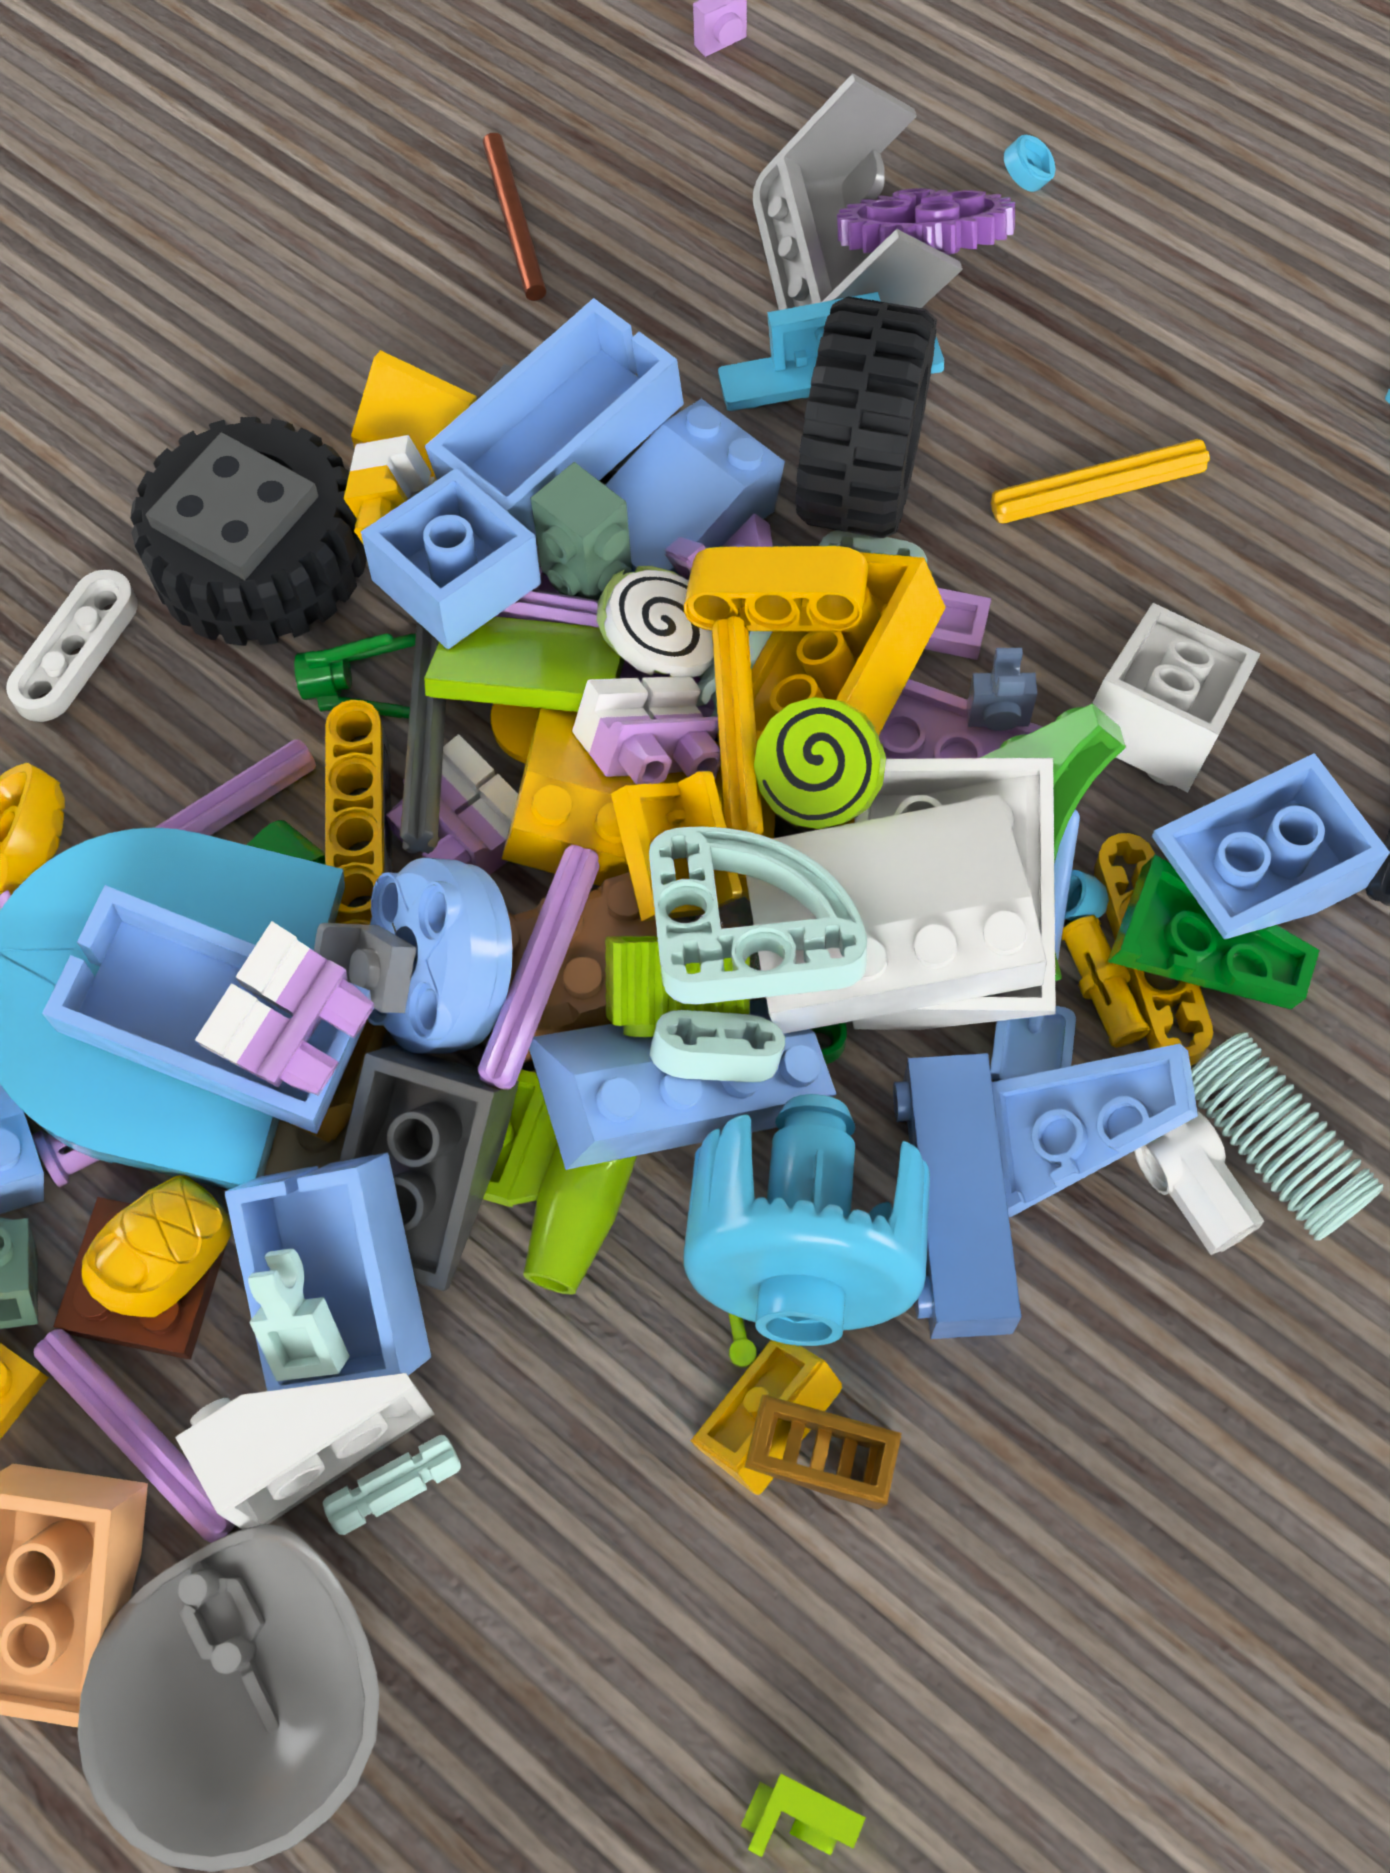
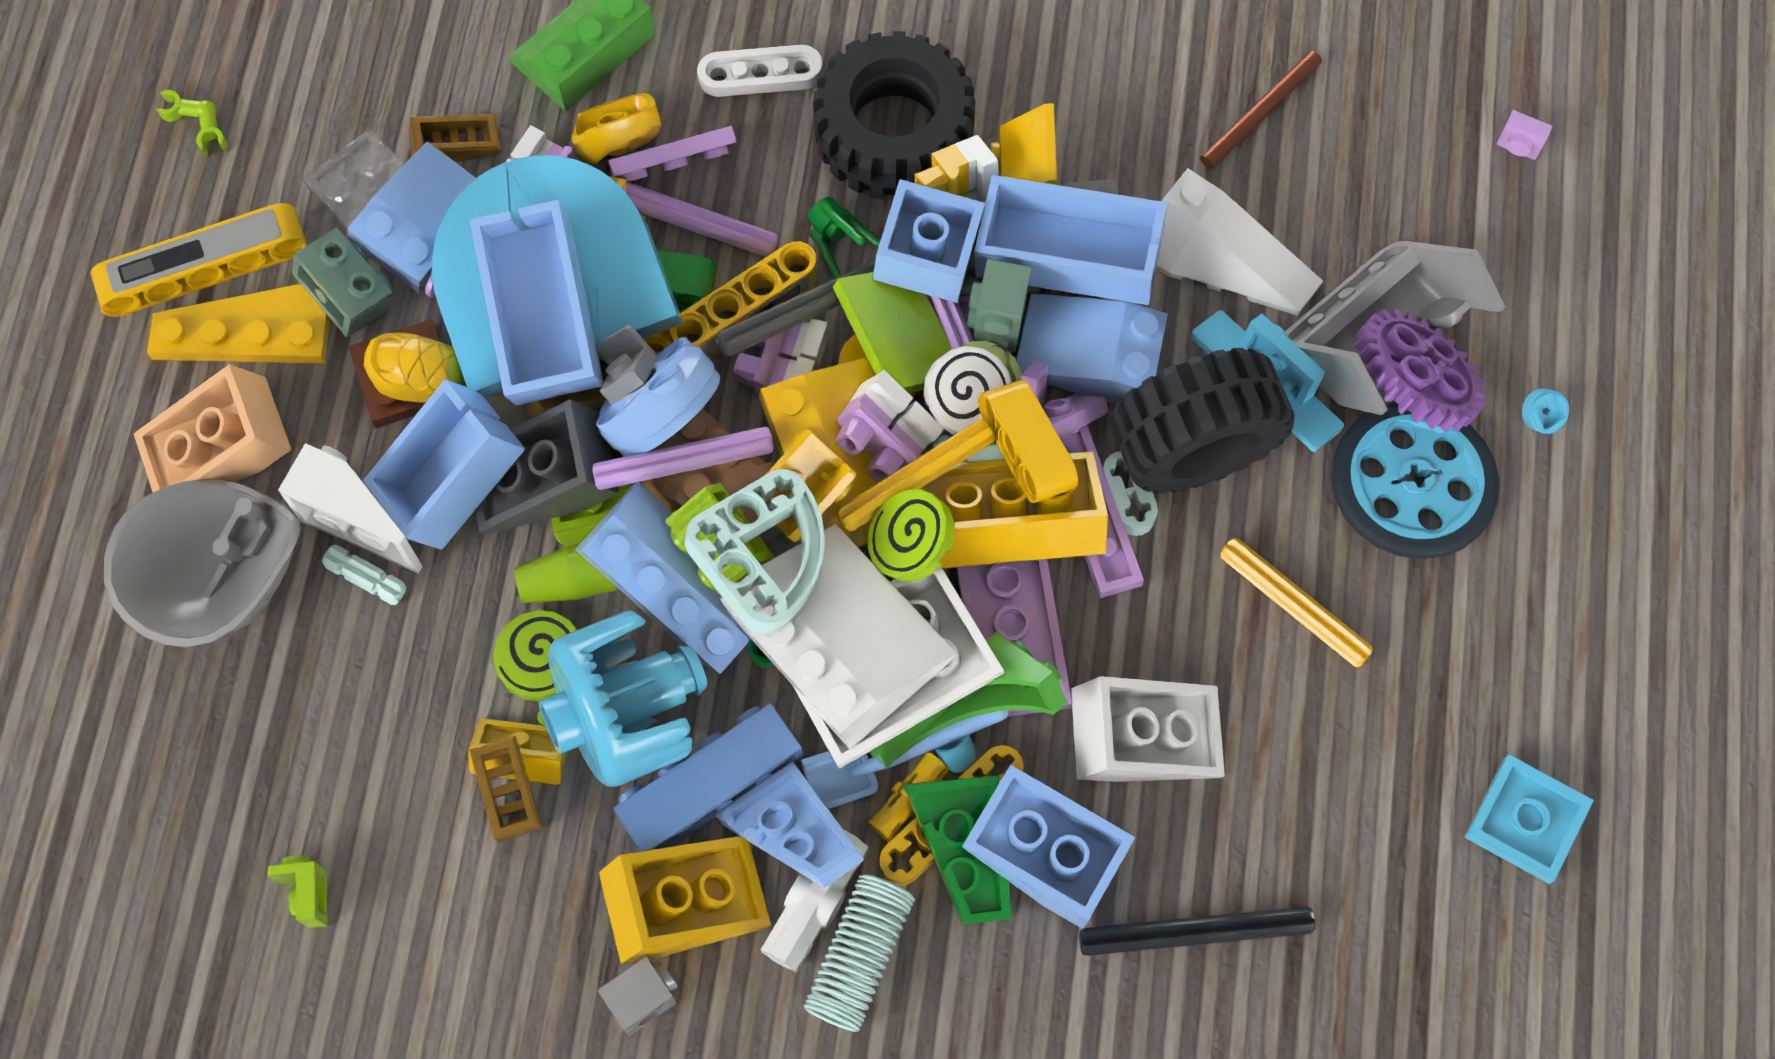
camera: 55 degrees right, 5 degrees up
(104, 789) = (672, 154): none -> lavender plate
(131, 1431) = (324, 400): lavender axle -> none
(232, 505) = (883, 95): dark grey tile -> none
(292, 1330) = (398, 466): light aqua plate -> none
(298, 984) = (541, 334): lavender hips -> none
(650, 1318) = (523, 653): none -> lime tile
(671, 308) = (1225, 247): none -> white wedge
(717, 1046) = (685, 585): light aqua beam -> none
(1004, 696) = (1055, 624): sand blue plate -> none
(1013, 360) = (1403, 534): none -> medium azure wedge
(1095, 1313) = (682, 897): none -> yellow slope
(1197, 1433) = (639, 995): none -> light grey brick

